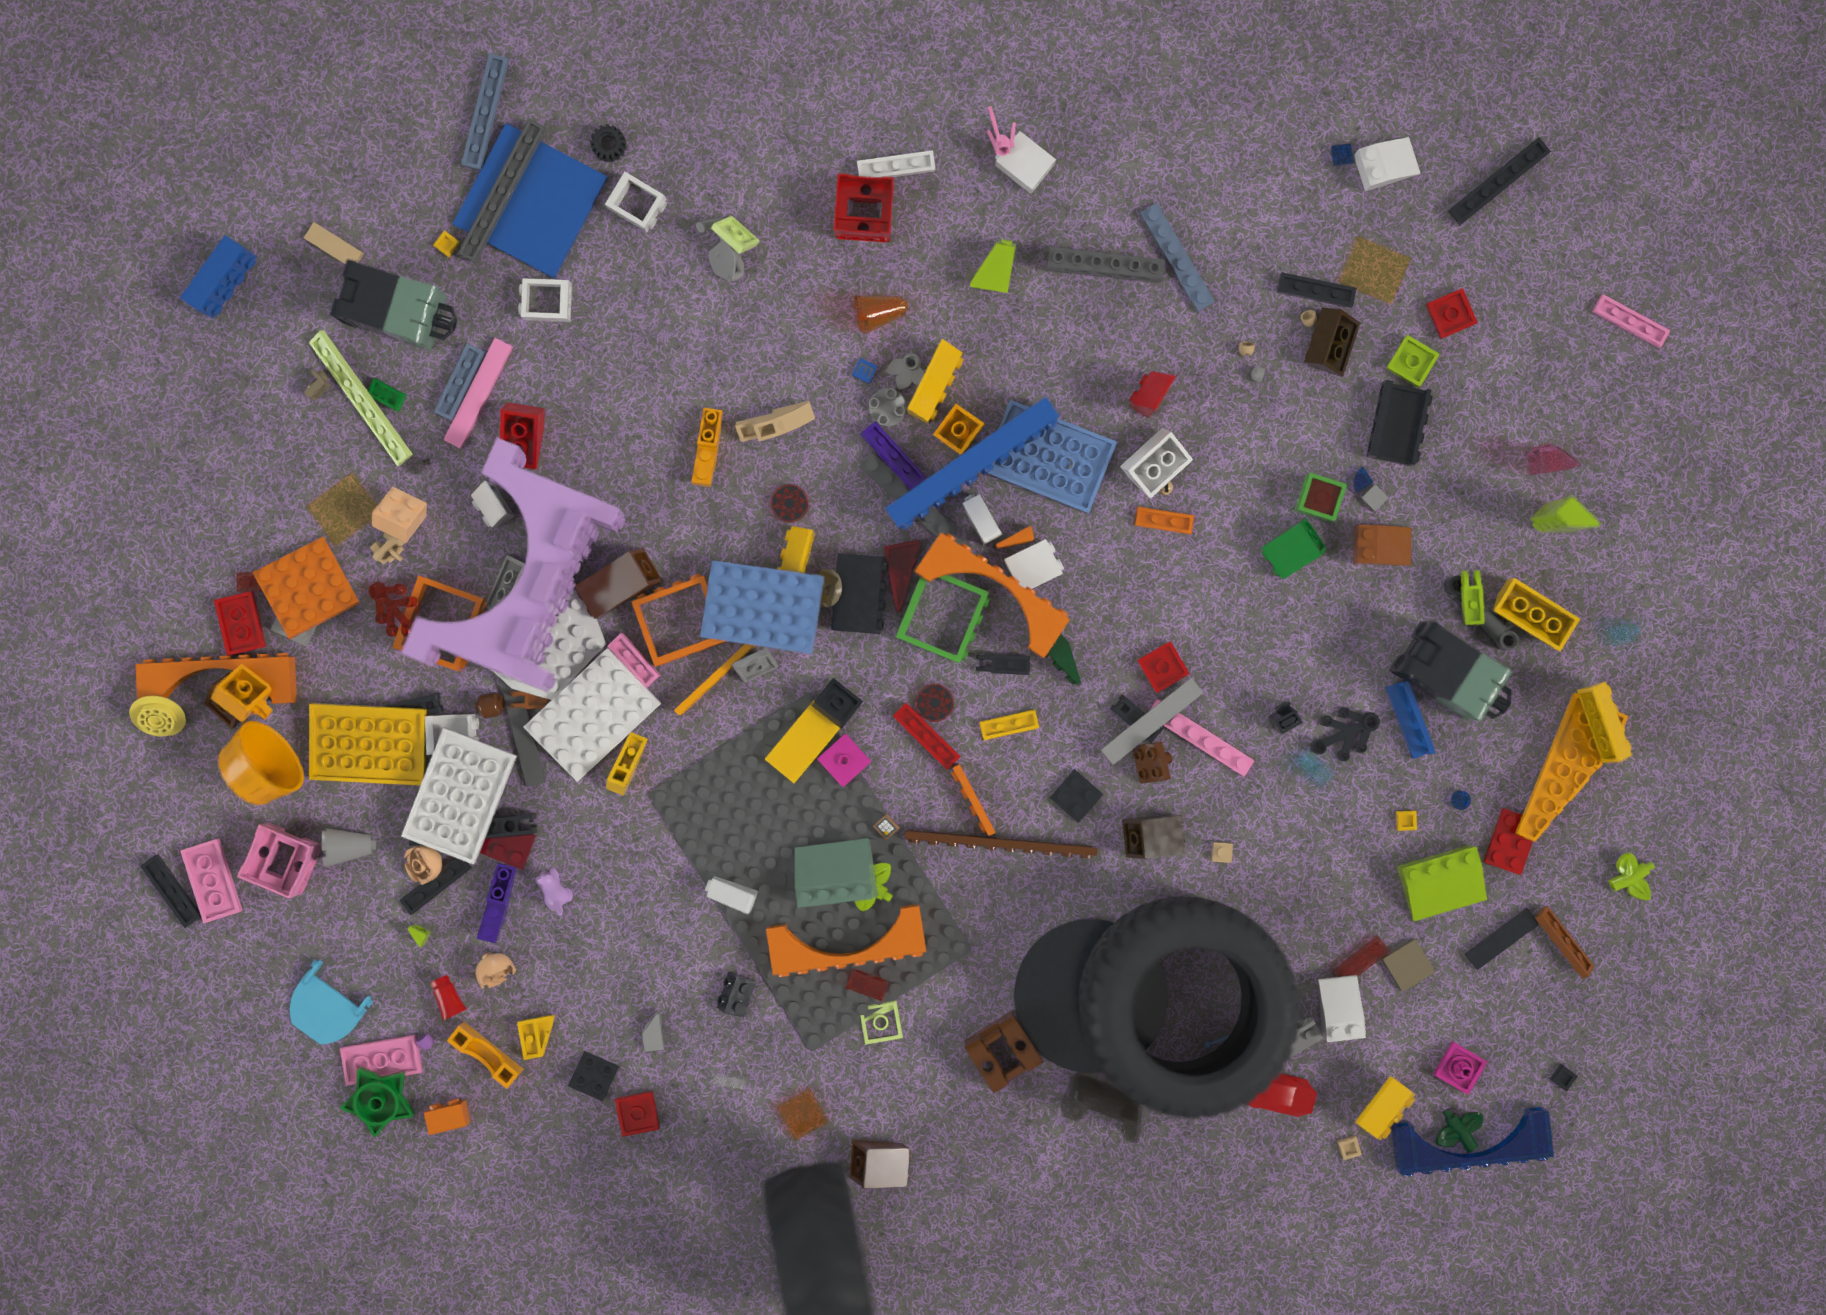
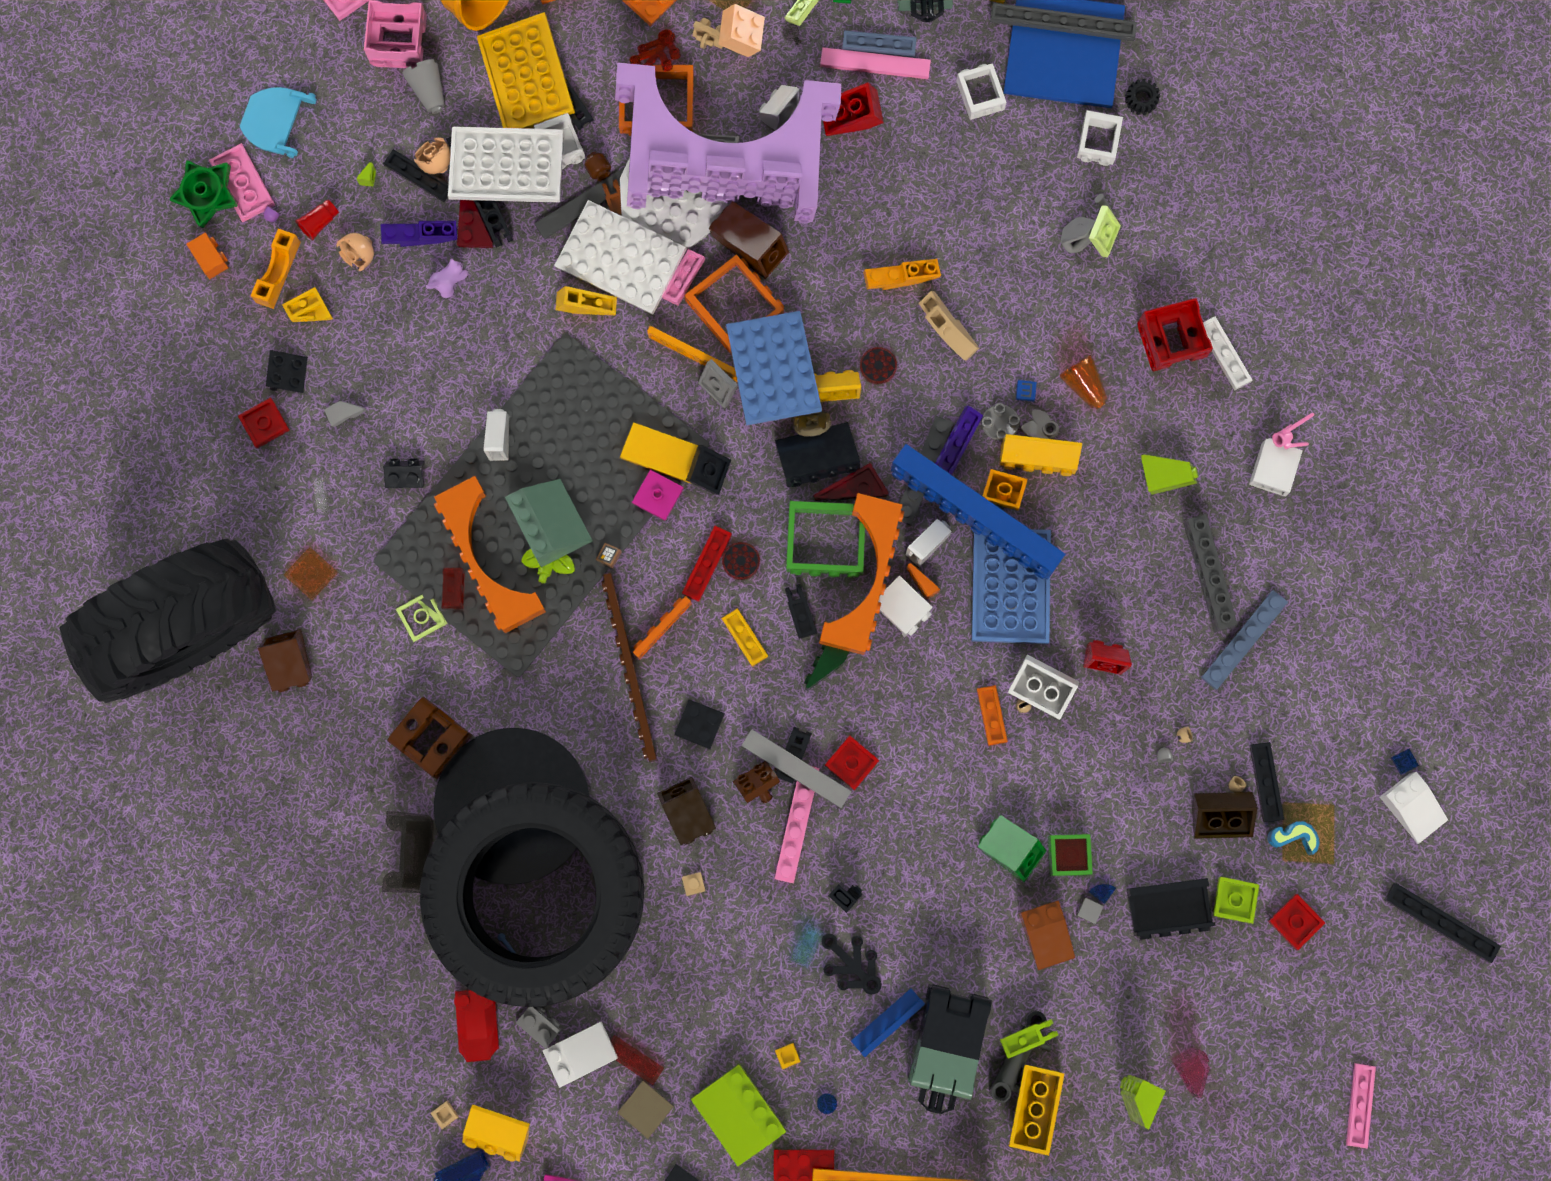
camera: 75 degrees right, 10 degrees down
(1372, 284) = (1292, 832): none -> dark azure animal

